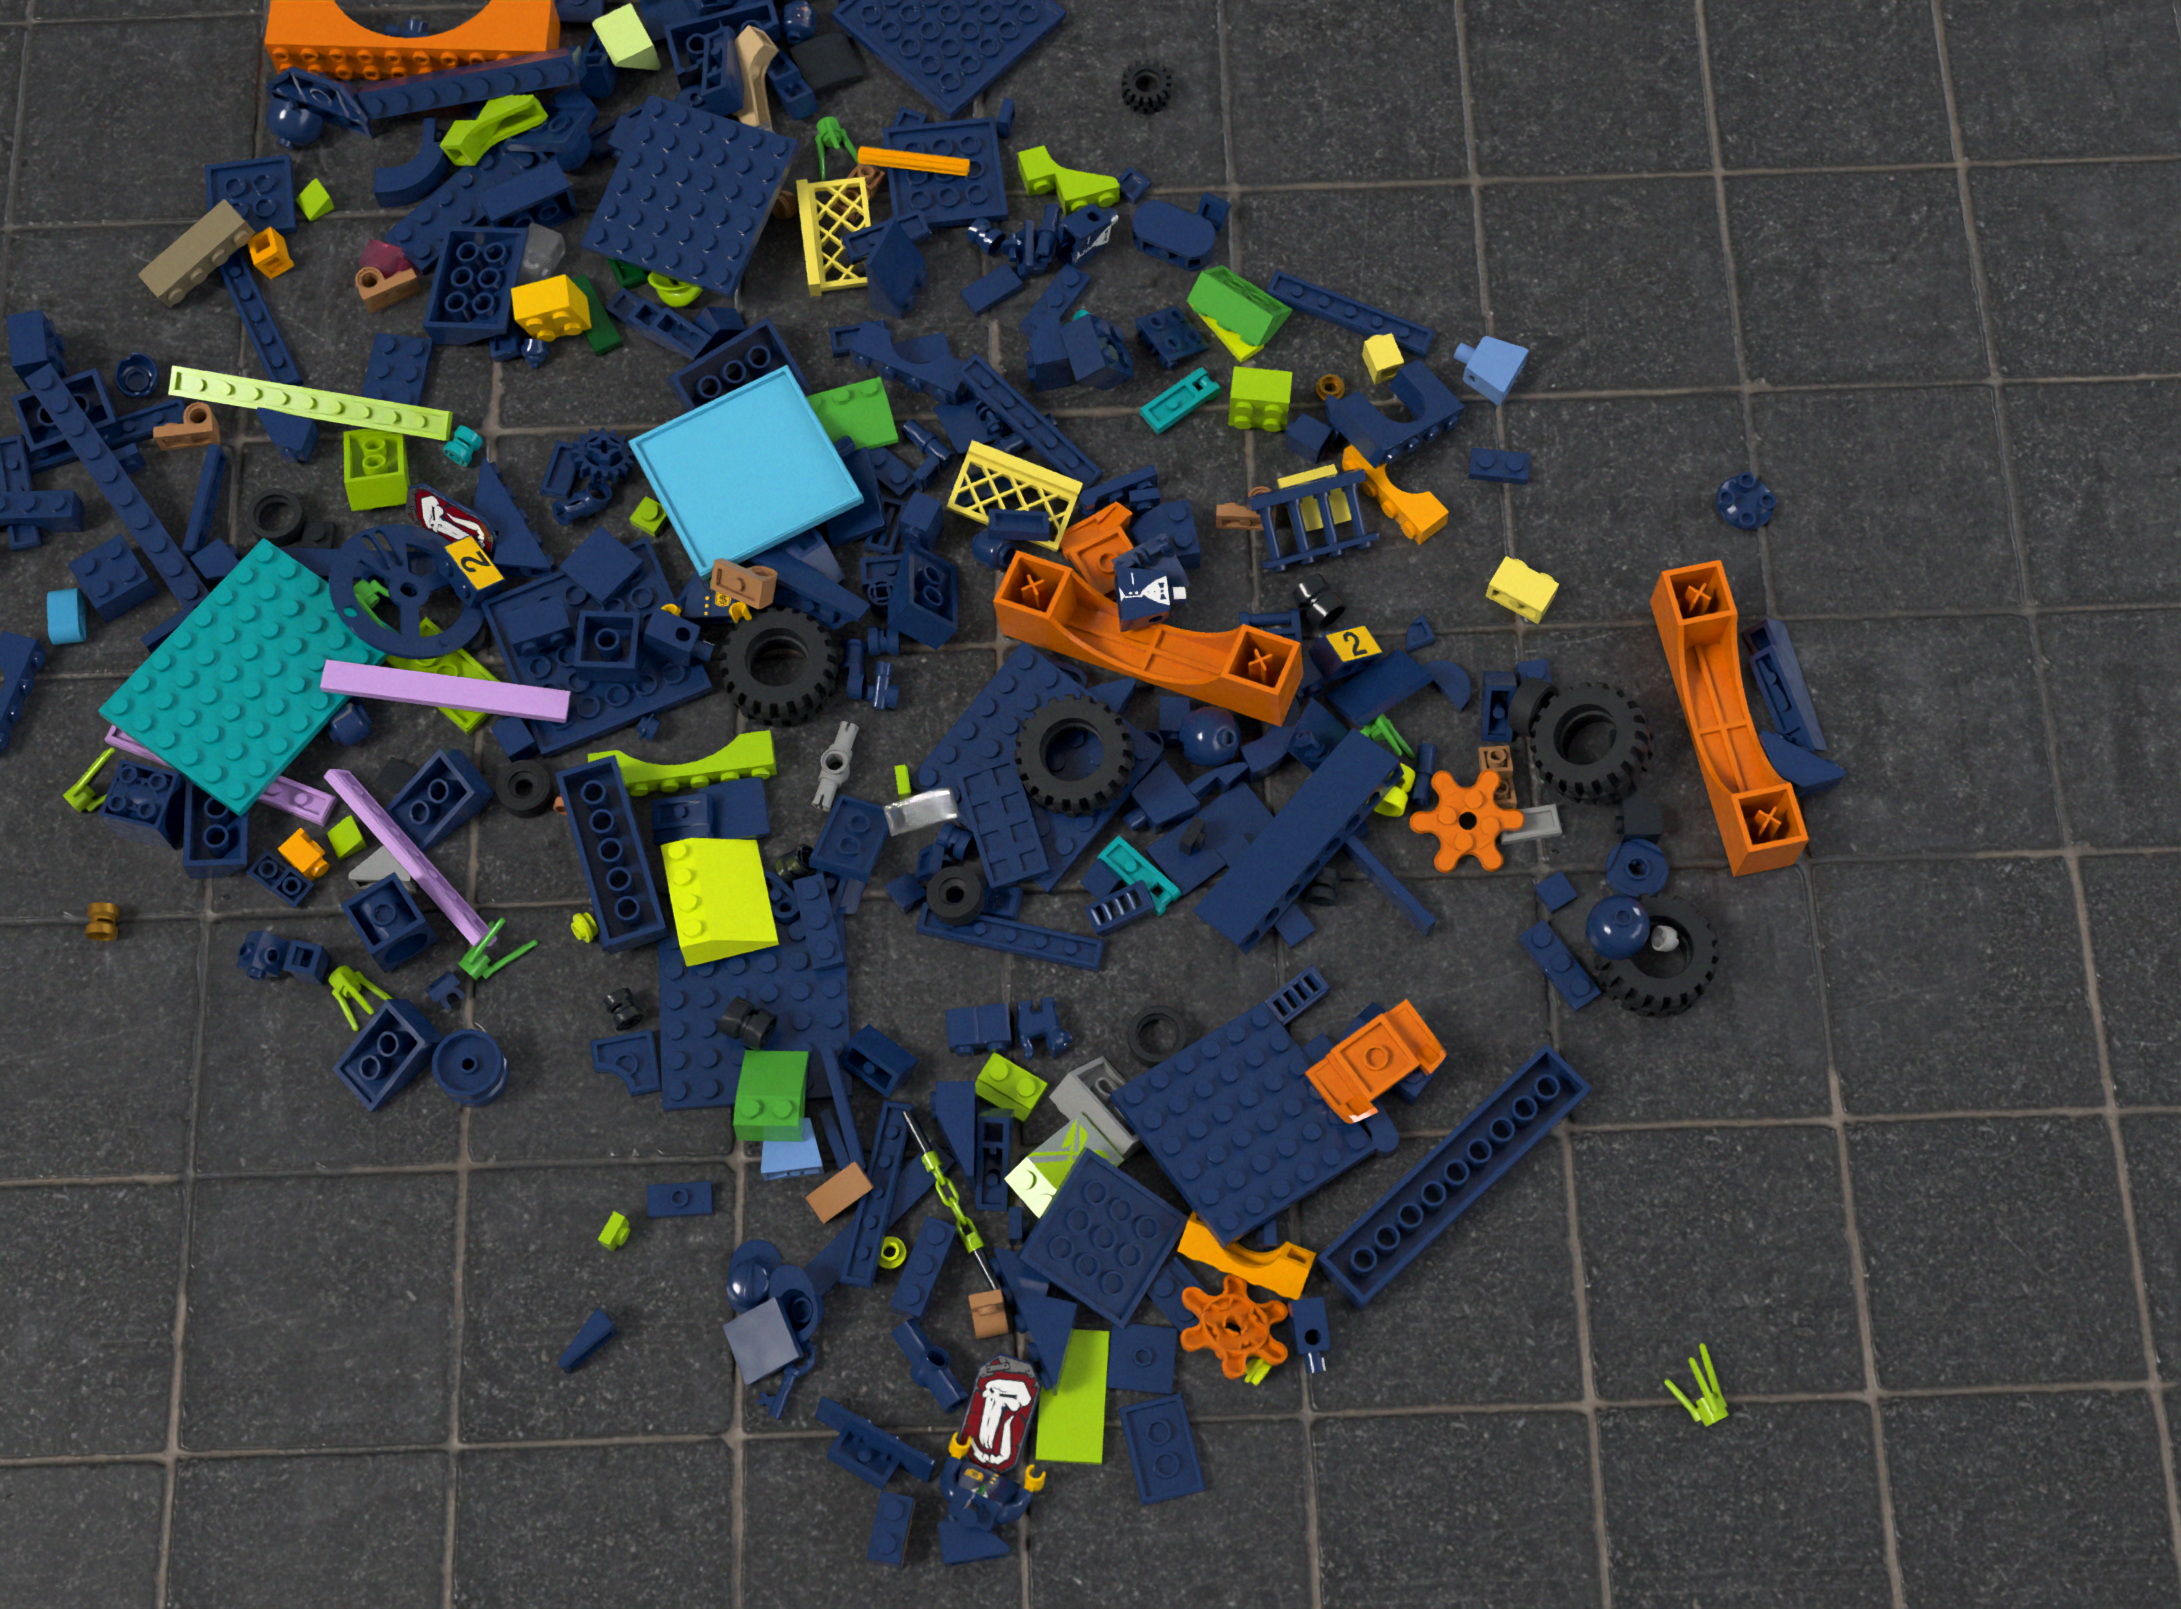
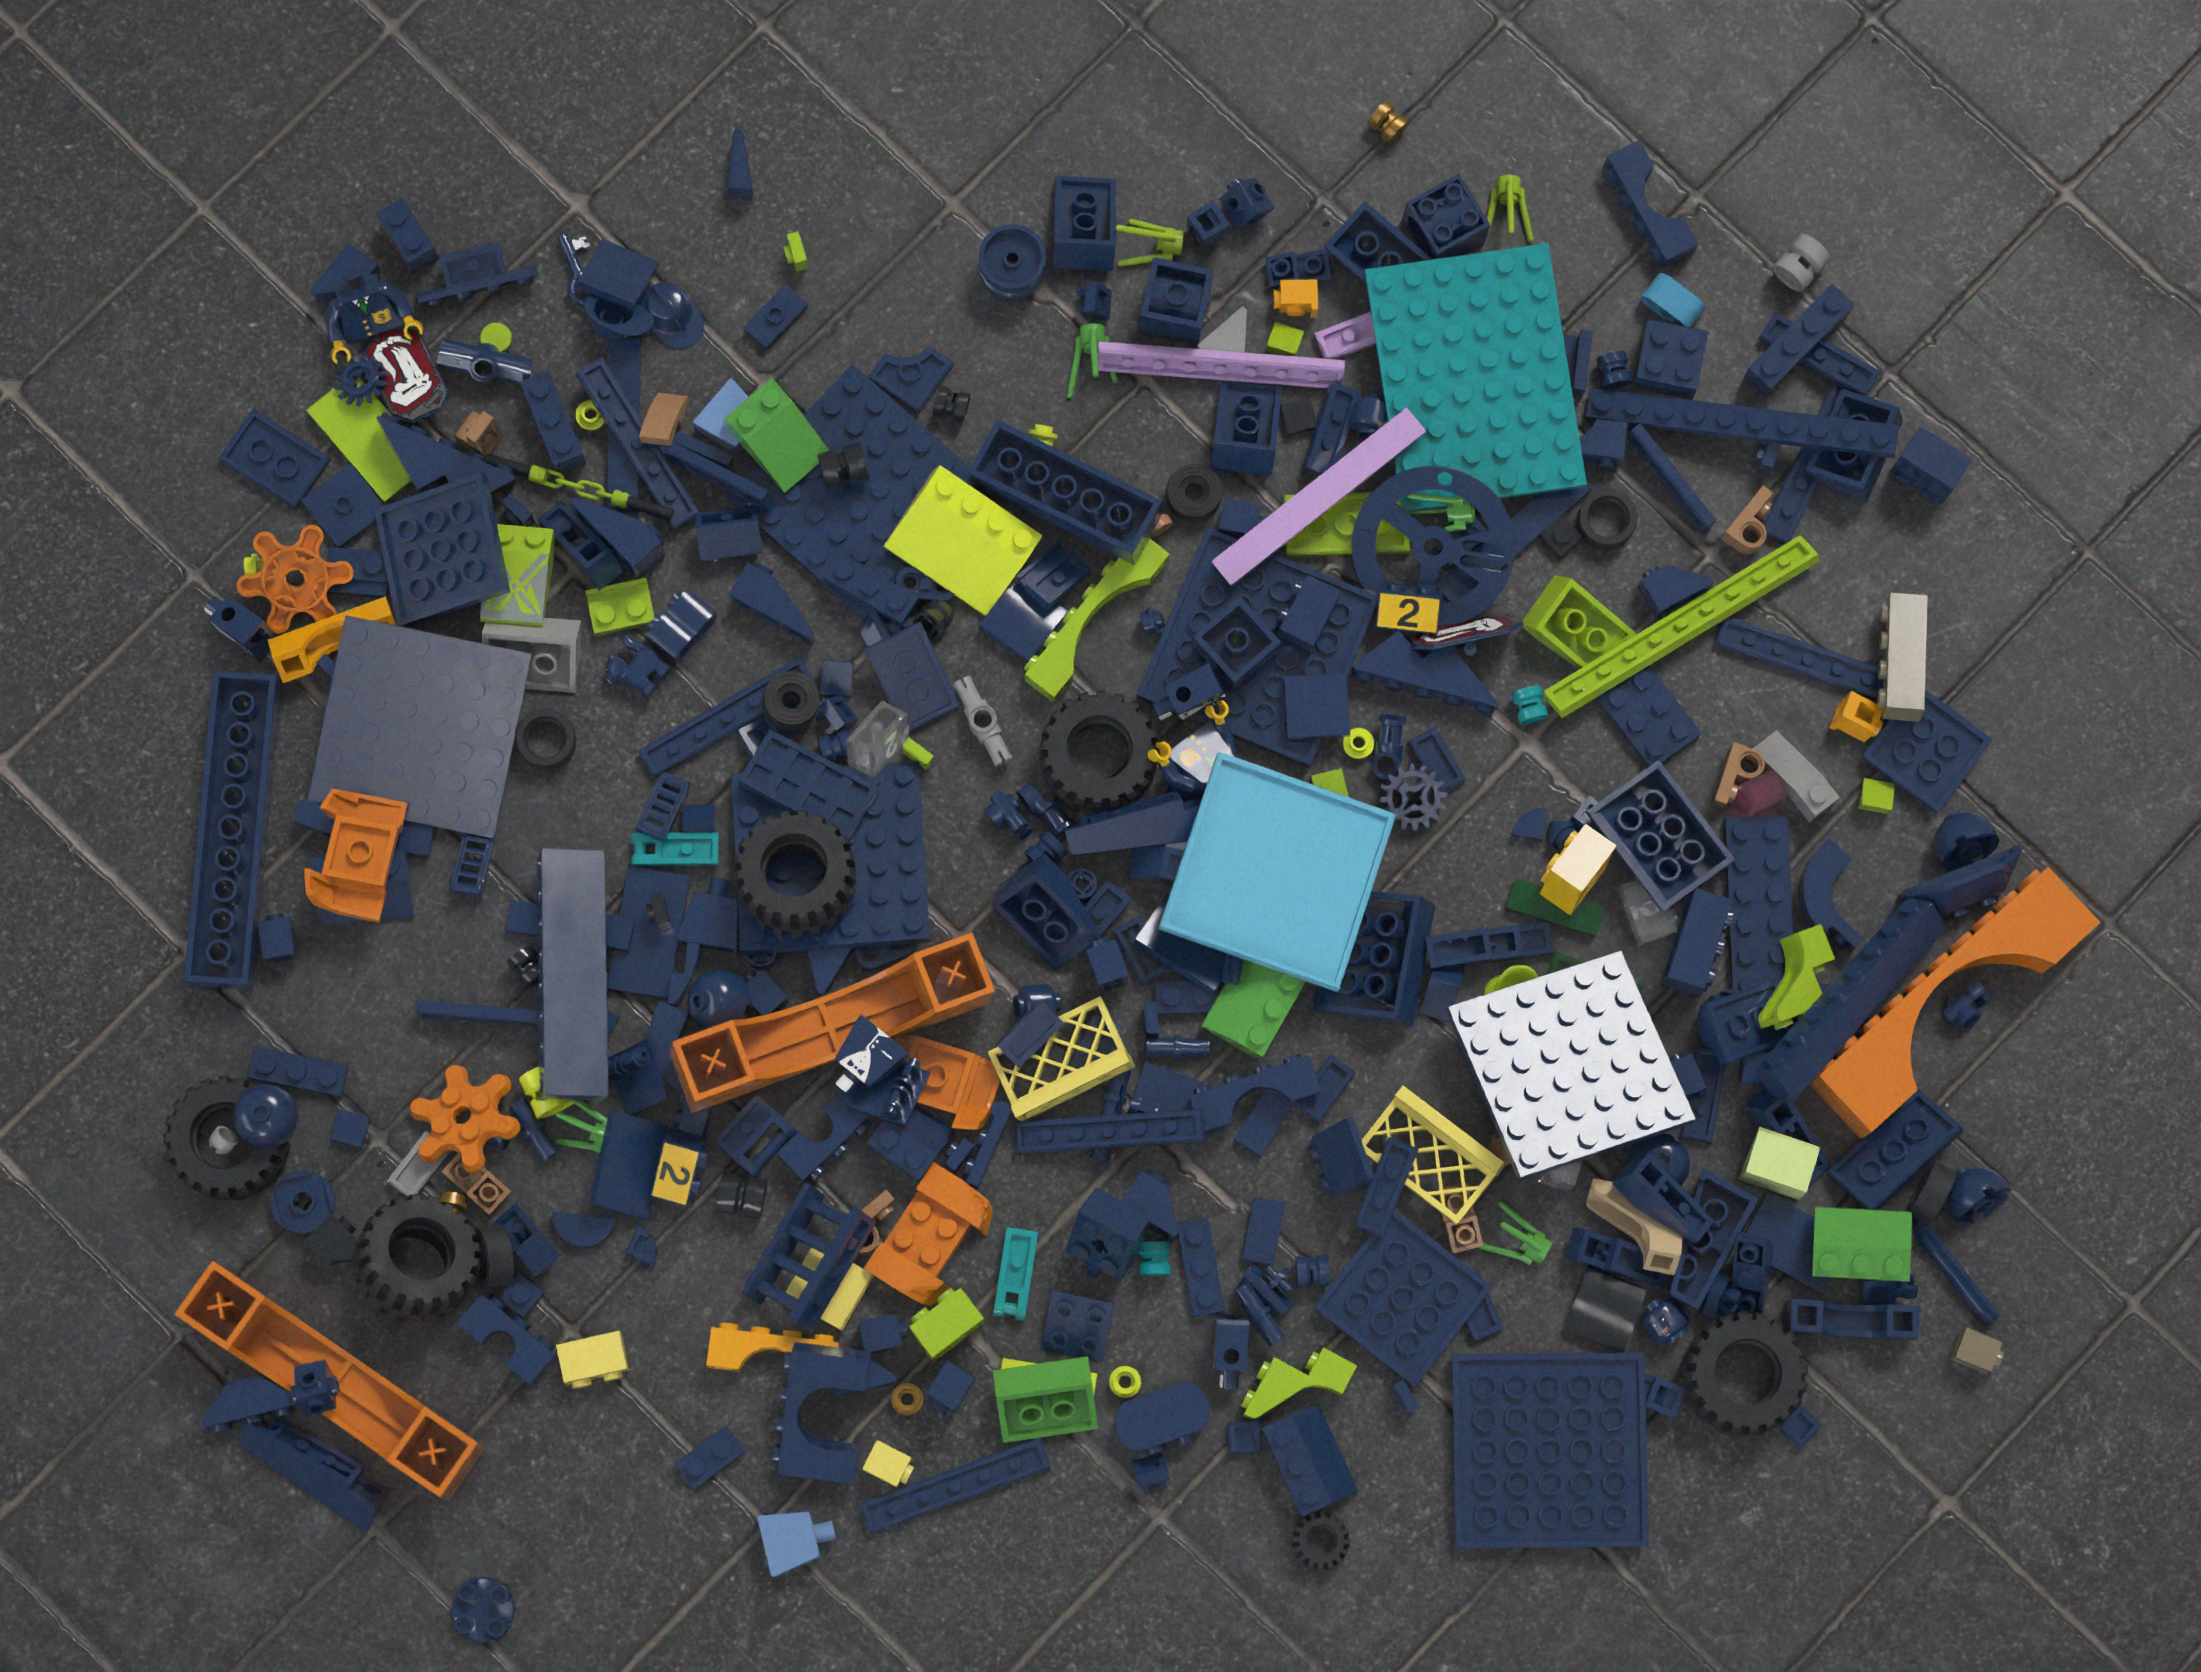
camera: 130 degrees right, 10 degrees up
(137, 375) = (1838, 523): dark blue hair -> none
(157, 606) = (1614, 370): none -> dark blue wheel
(349, 239) = (1797, 776): none -> light grey slope
(386, 743) = (1331, 428): none -> dark blue plate
(547, 376) = (1531, 825): none -> dark blue tile
(598, 517) = (1358, 753): none -> neon yellow plate
(751, 585) = (1167, 776): medium nougat plate -> none
(897, 990) = (764, 597): none -> dark blue slope
(901, 1384) = (497, 335): none -> lime tile
(913, 161) = (1433, 1277): light orange axle -> none
(1025, 1436) = (358, 369): none -> dark blue gear
(1107, 133) = (1309, 1460): none -> dark blue slope
(1175, 271) = (1128, 1372): none -> neon yellow plate
(1217, 470) = (930, 1235): none -> orange piece
(1246, 586) = (808, 1157): none -> dark blue arch
(1299, 355) = (949, 1389): none -> dark blue brick
(1490, 1069) = (278, 939): none -> dark blue brick
(1529, 774) = (455, 1199): none -> pearl gold plate
(1565, 627) = (487, 1319): none -> dark blue arch
(1743, 734) = (315, 1387): none -> dark blue brick

